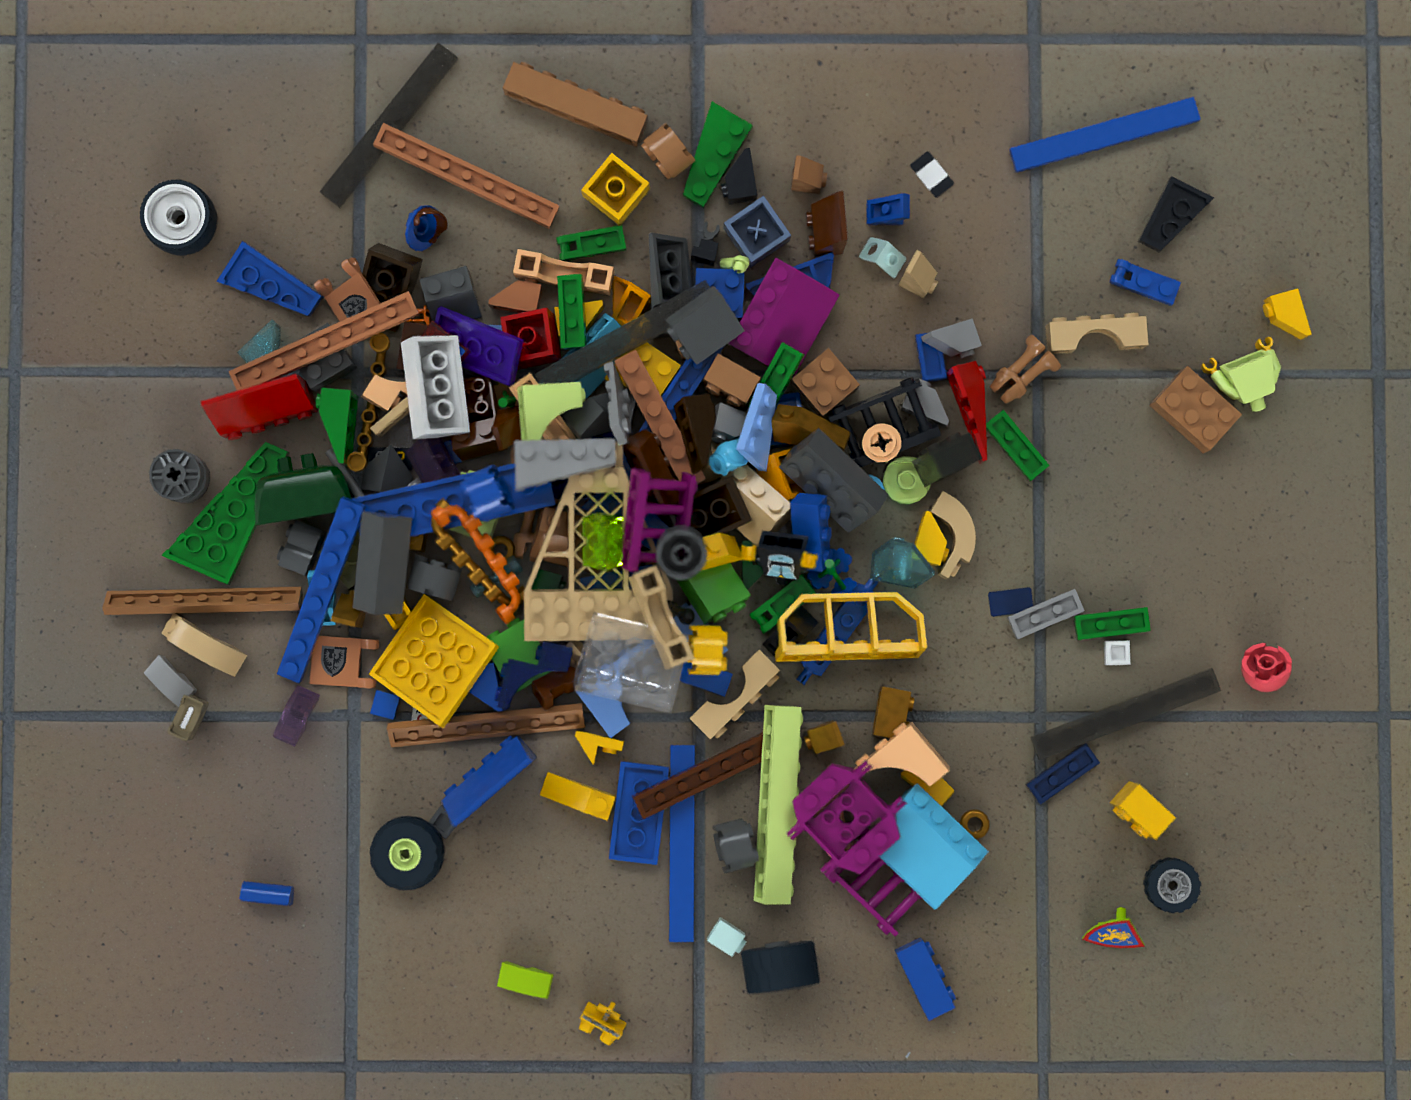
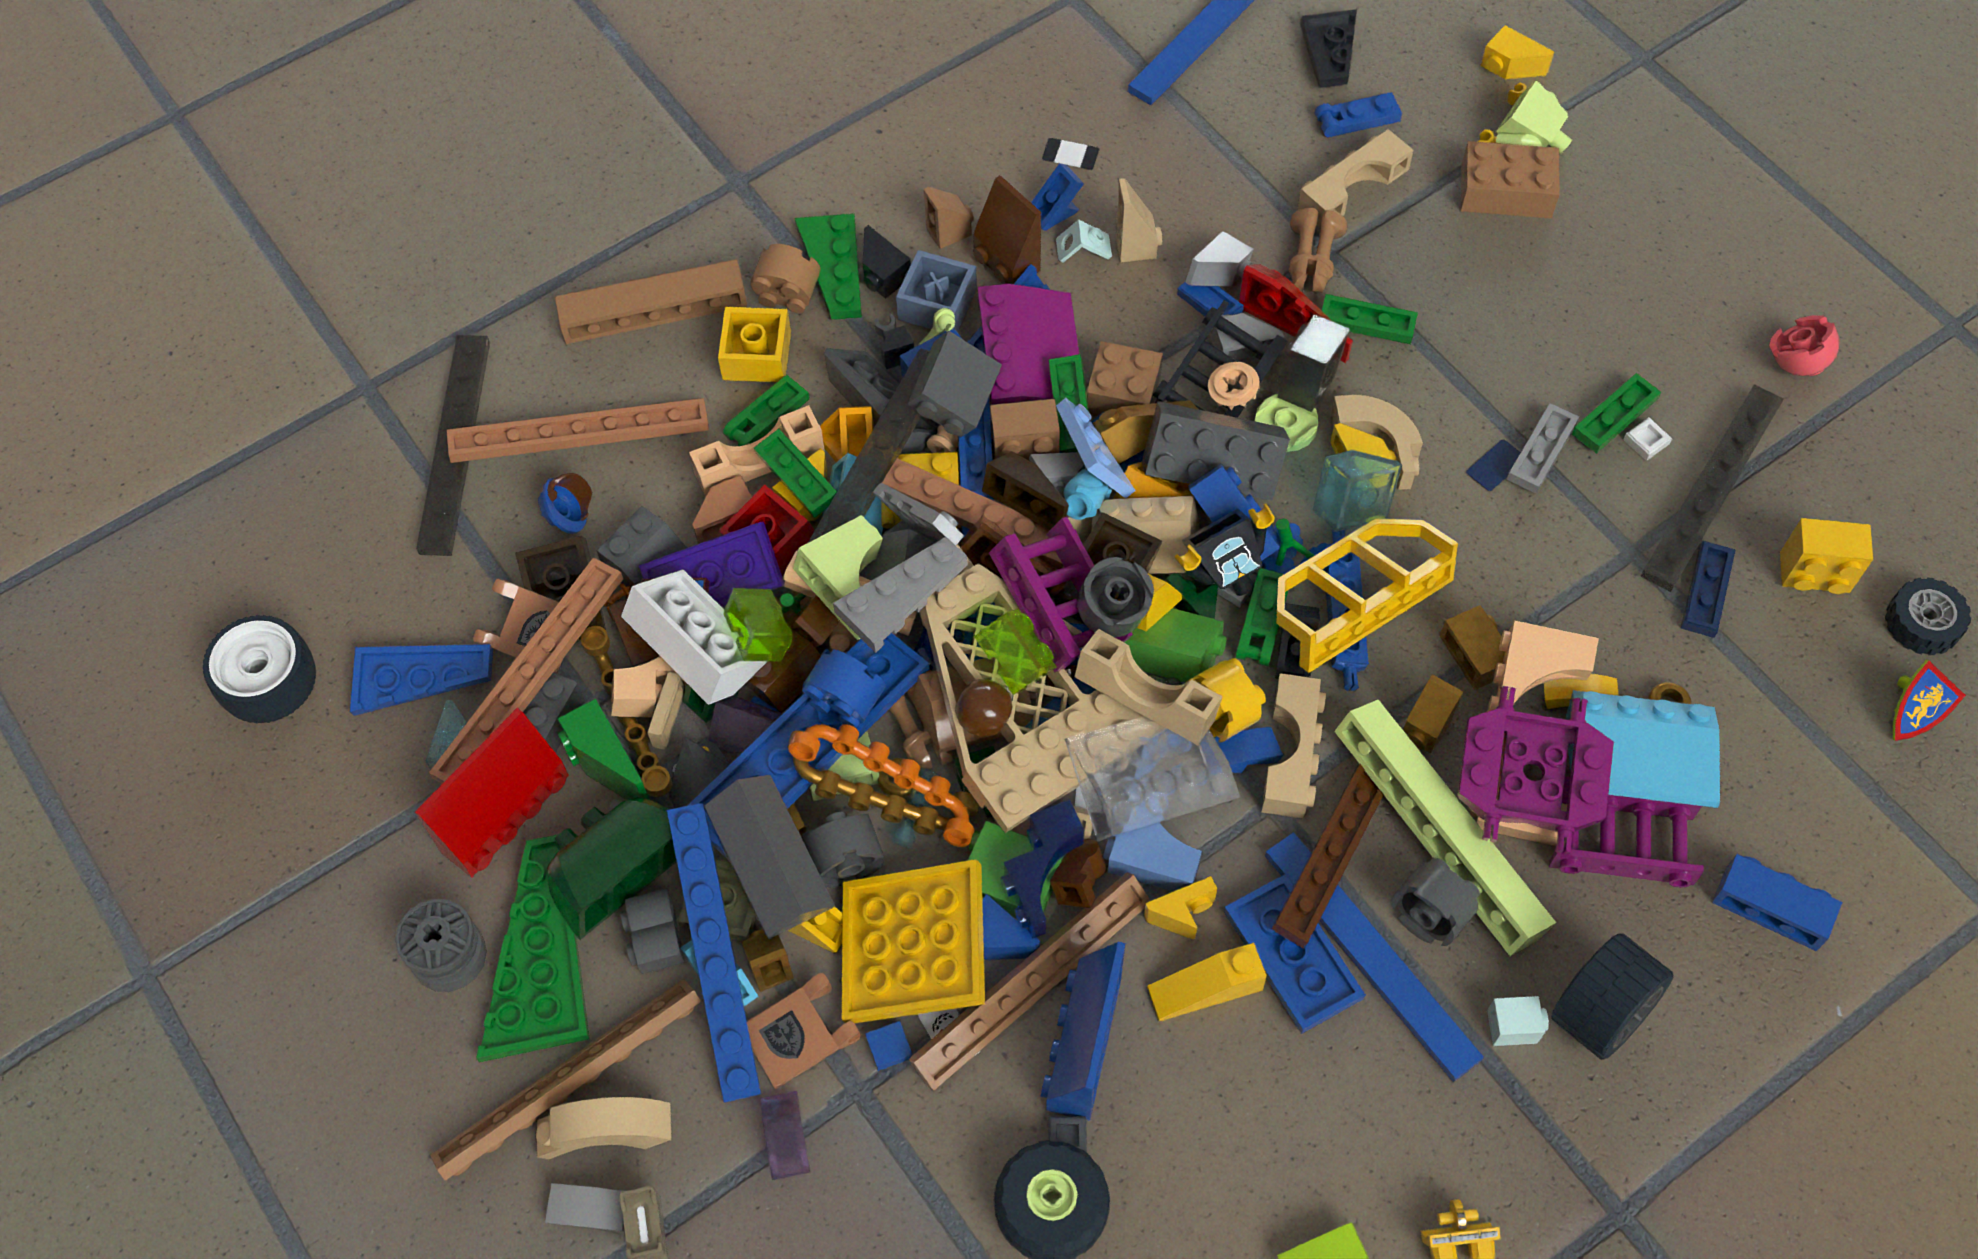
camera: 30 degrees left, 25 degrees down
(474, 410) = (758, 623): none -> clear neon green brick
(559, 563) = (983, 707): none -> reddish brown hair

